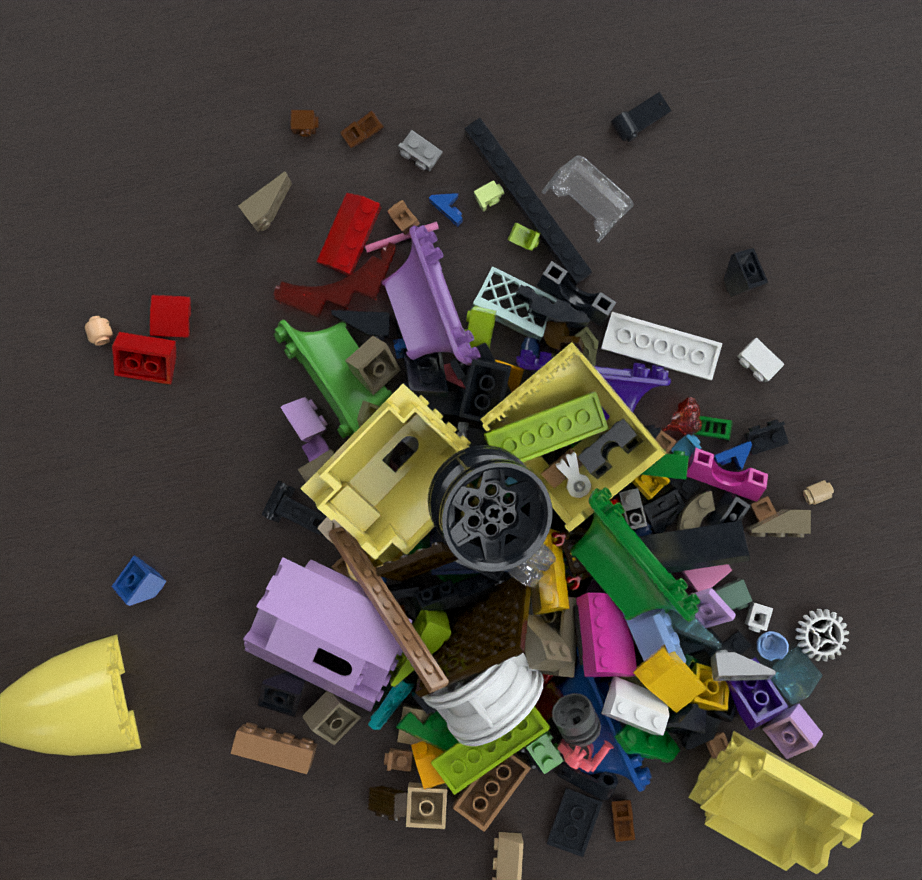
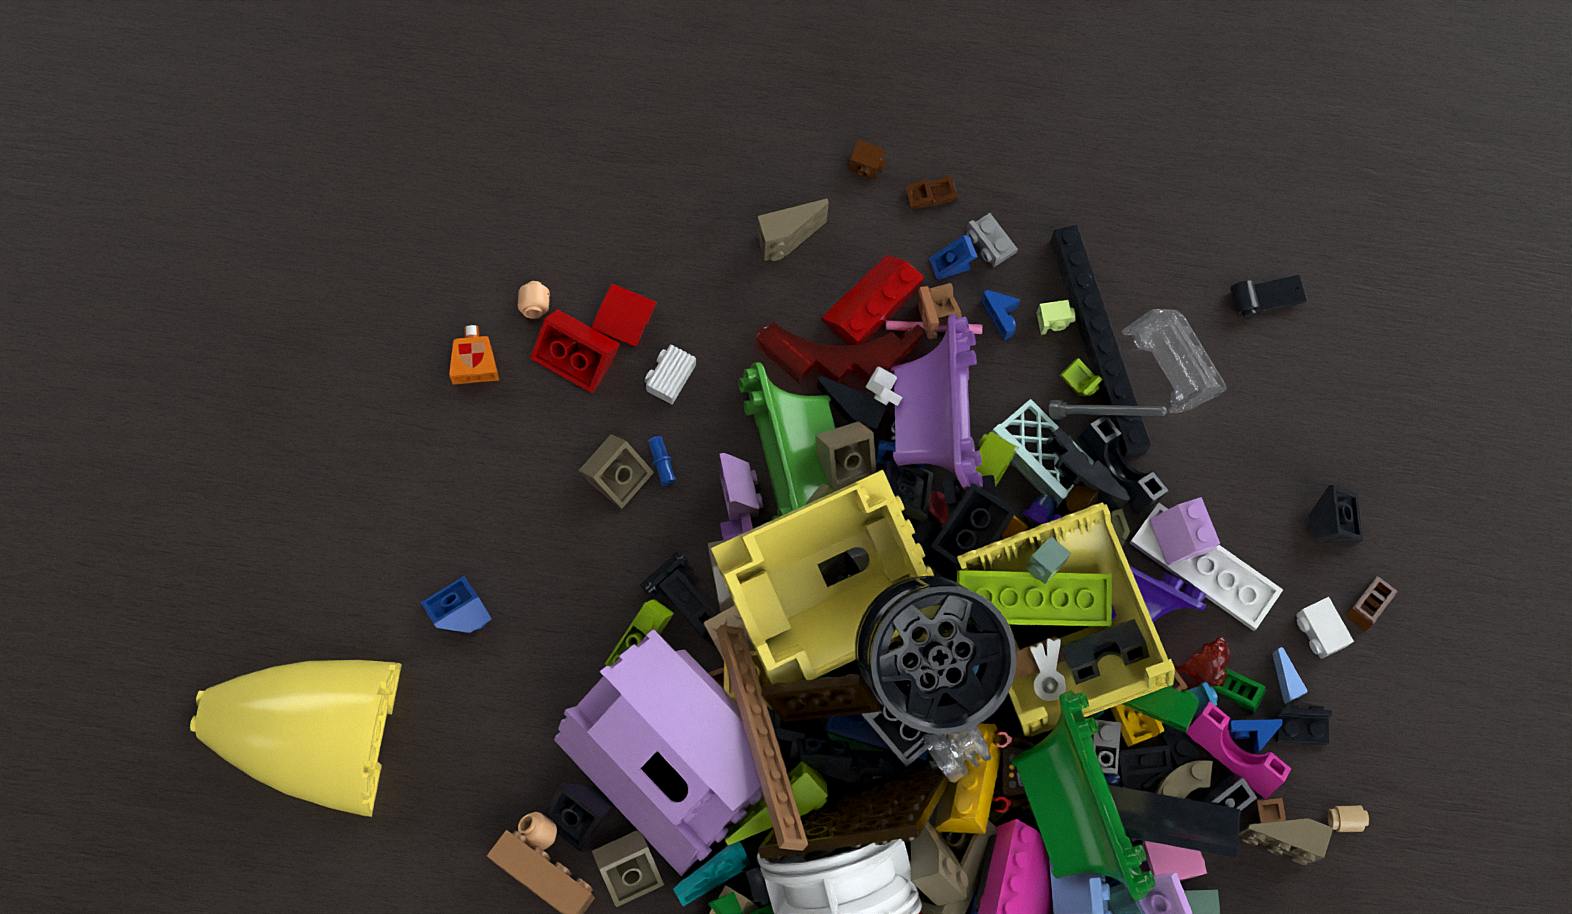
camera: 15 degrees right, 15 degrees down
(72, 392) = (472, 358): none -> orange torso
(211, 438) = (616, 470): none -> dark tan slope
(221, 349) = (670, 374): none -> white brick
(241, 416) = (662, 460): none -> blue axle
(259, 717) = (538, 830): none -> light nougat head
(277, 548) = (651, 616): none -> lime slope
(379, 302) = (881, 384): none -> white bracket
(393, 229) = (927, 312): none -> nougat tile
(397, 178) = (953, 258): none -> blue slope
(516, 267) = (1060, 409): none -> dark grey piece
(546, 403) = (1047, 560): none -> sand green brick
(637, 328) = (1184, 531): none -> lavender slope
(747, 409) = (1289, 680): none -> light blue slope
(786, 339) = (1361, 614): none -> reddish brown slope

